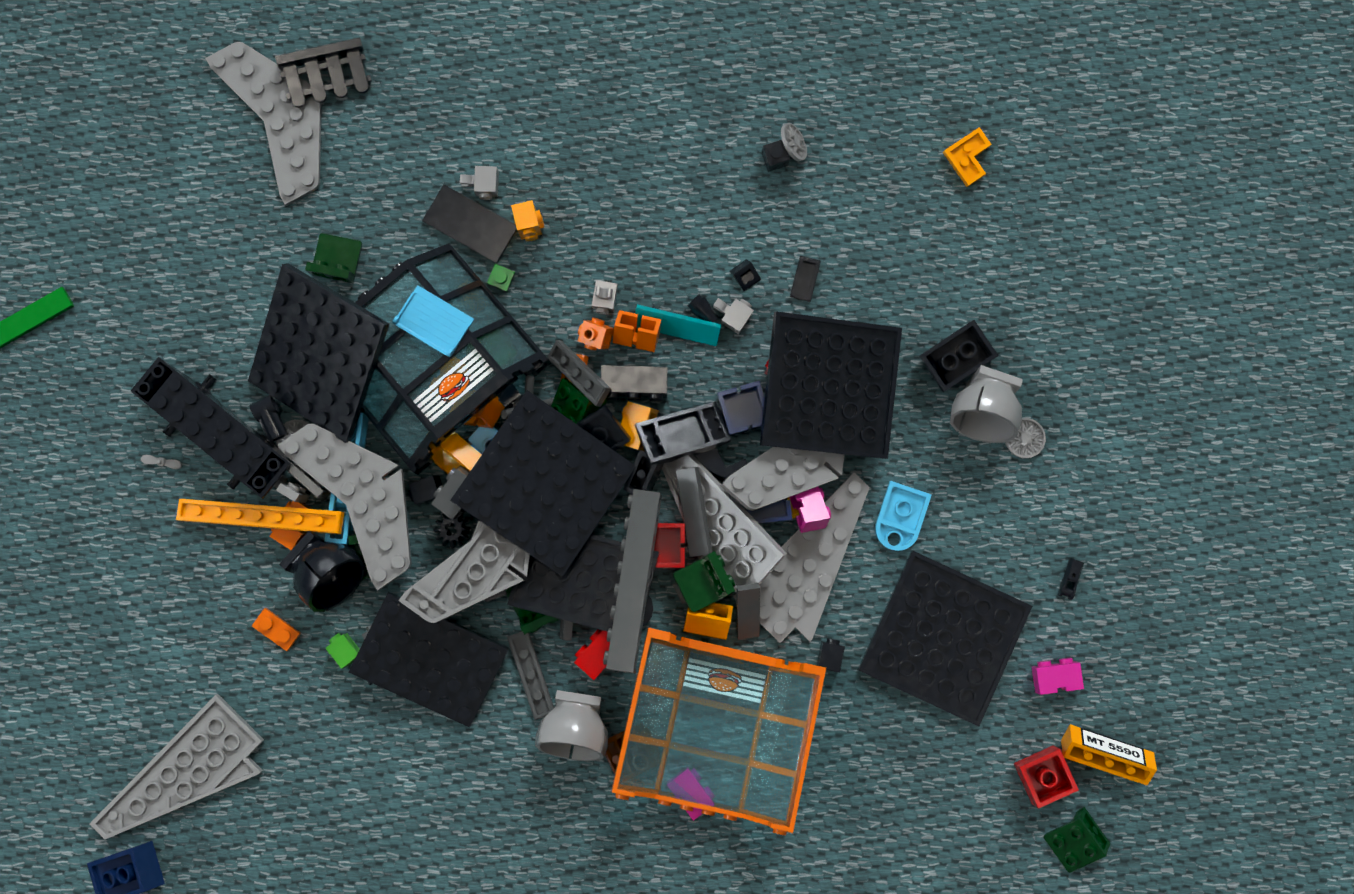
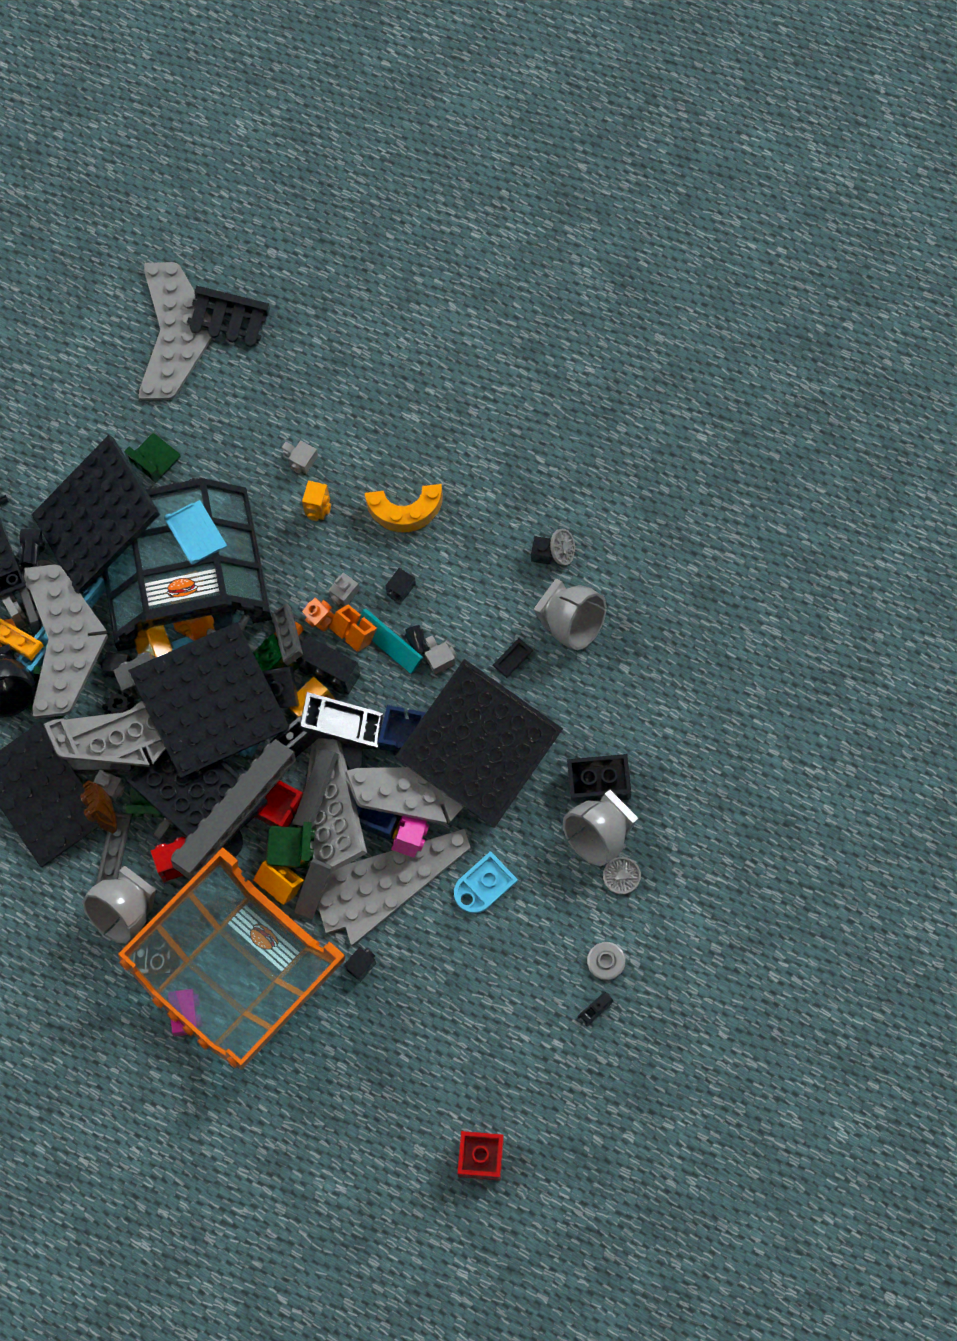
camera: 35 degrees right, 15 degrees down
(470, 223) = (271, 483): black tile -> none
(488, 614) = (111, 784): none -> light grey brick
(497, 643) = (99, 807): none -> reddish brown slope
(501, 277) = (272, 536): green plate -> none
(623, 192) = (408, 517): none -> light orange brick
(657, 263) = (400, 585): none -> black brick
(745, 274) = (466, 631): black slope -> none
(843, 206) = (567, 609): none -> light grey plate
(945, 638) = (463, 1001): black plate -> none
(963, 153) = (696, 625): light orange plate -> none
(1051, 532) = (606, 961): none -> light grey wheel
(1062, 675) = (539, 1080): dark pink brick -> none
(1078, 841) = (479, 1227): dark green bracket -> none
(1108, 754) = (543, 1166): light orange brick -> none

